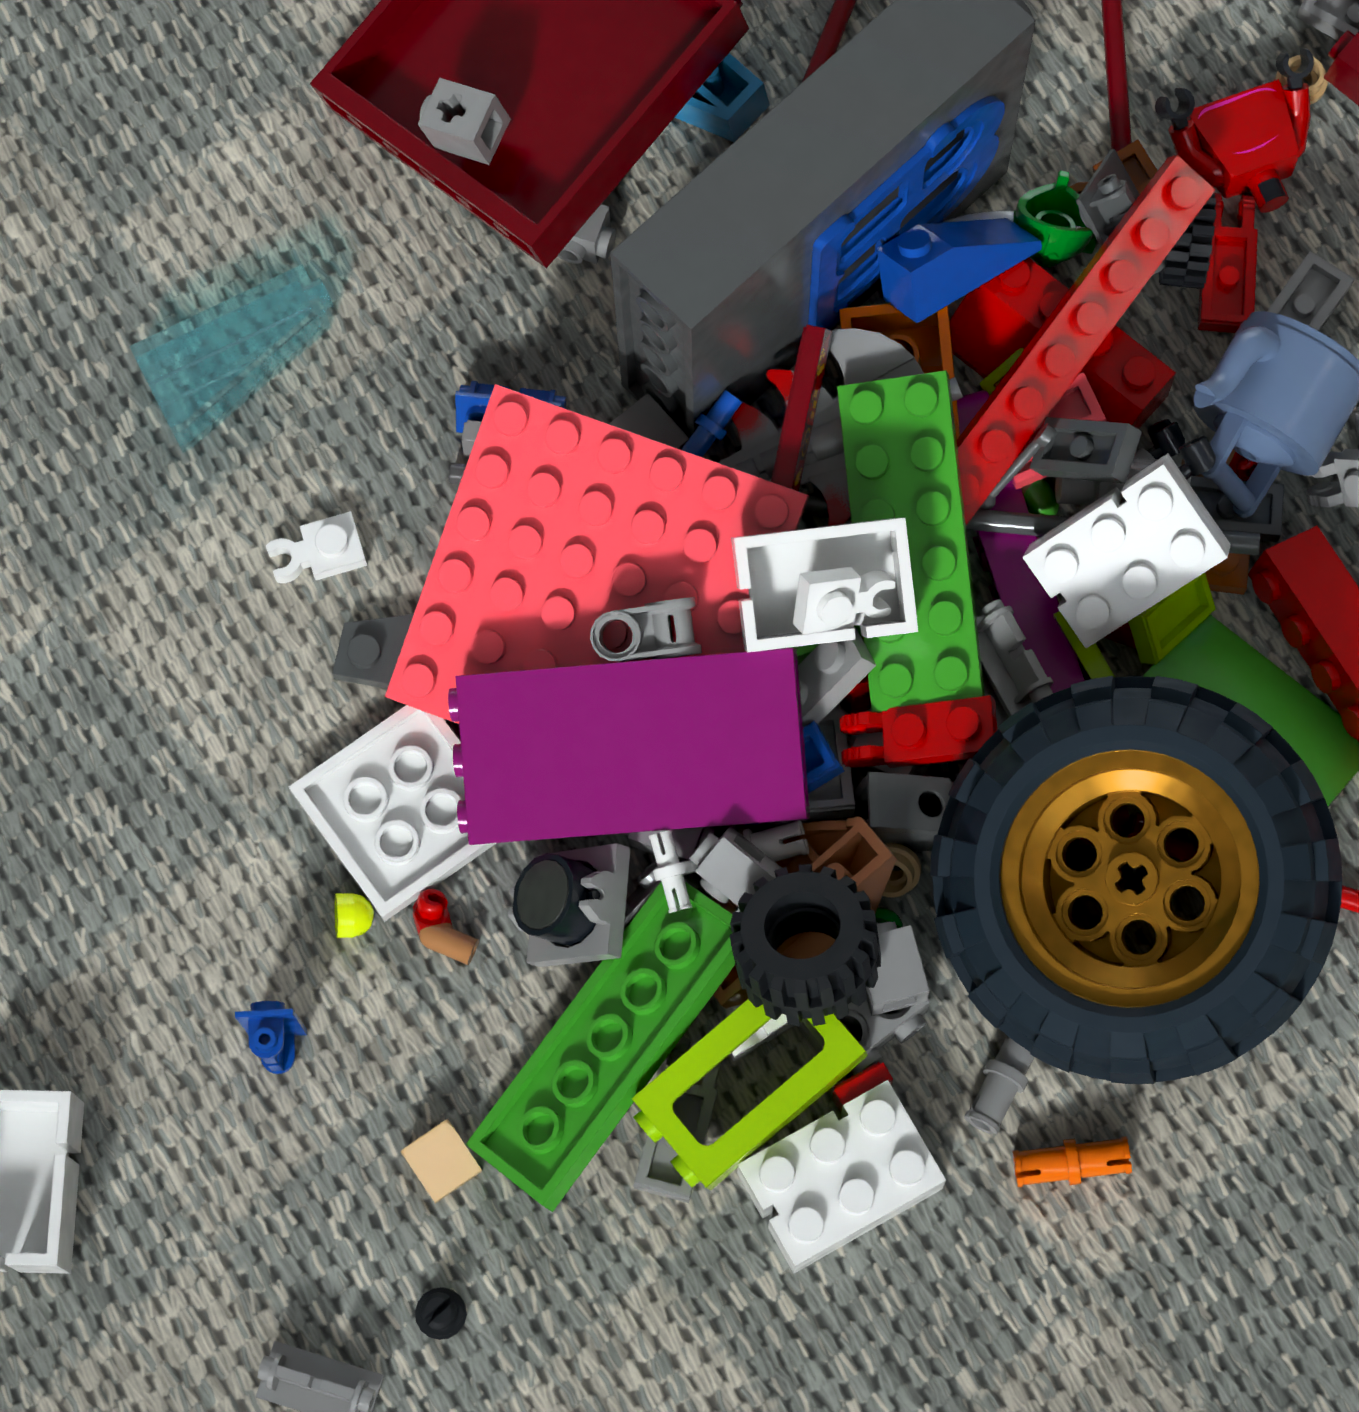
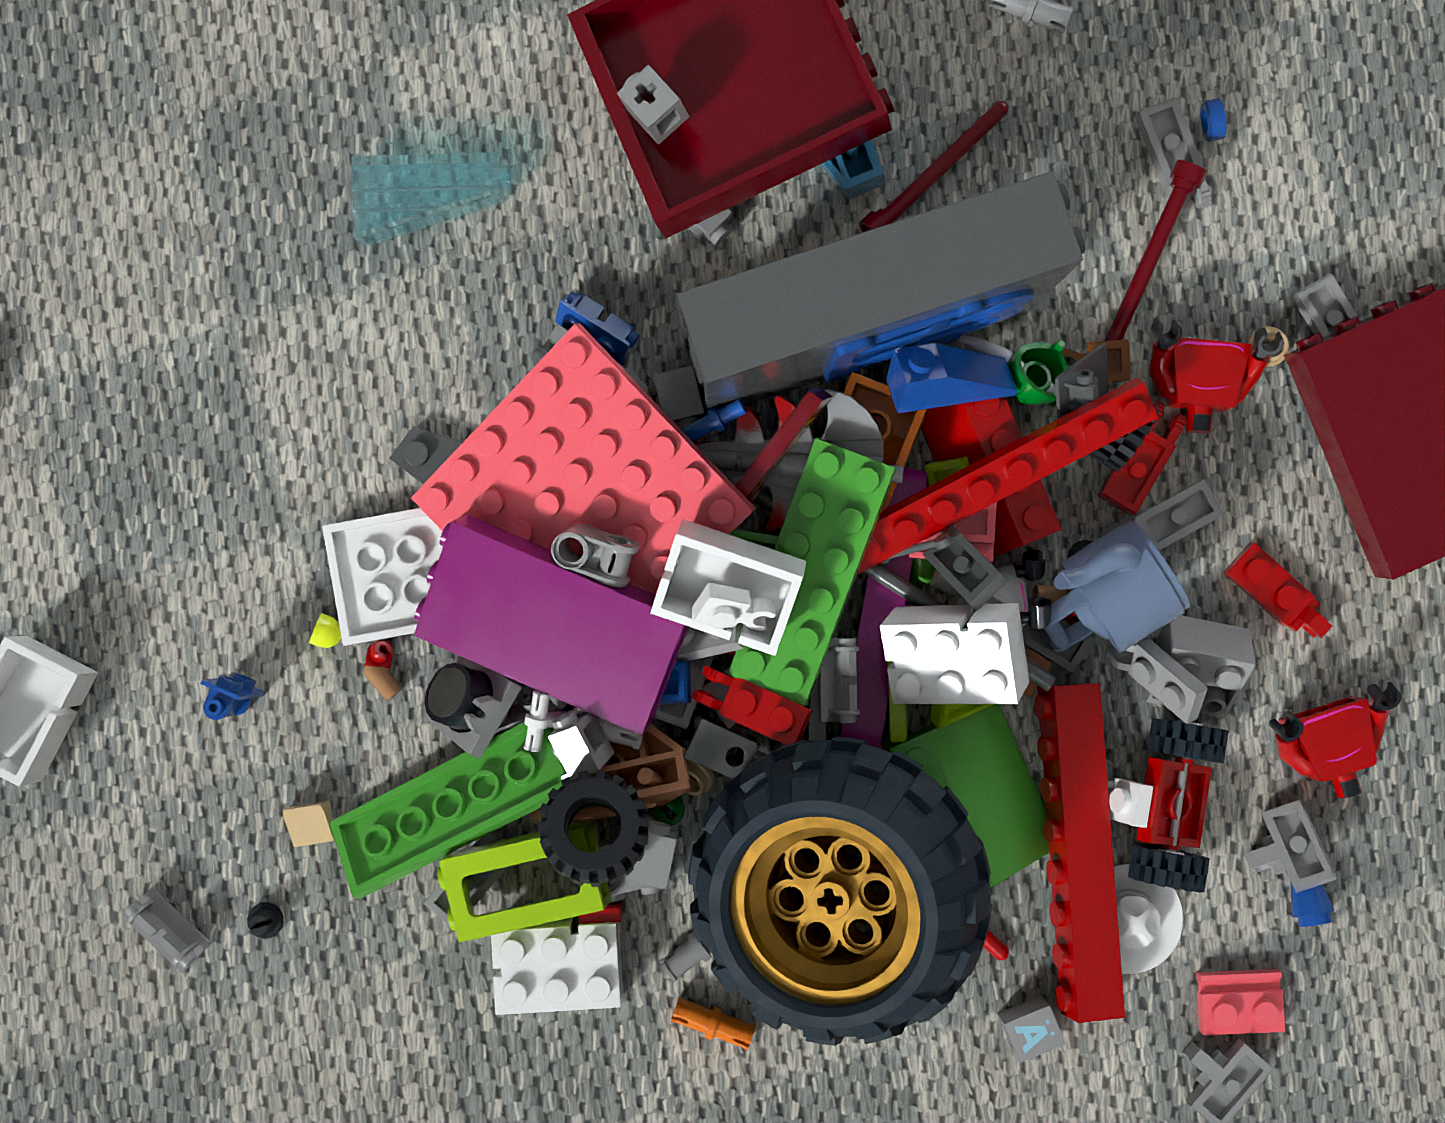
camera: 20 degrees right, 15 degrees up
(327, 547) = (427, 364): white plate -> none

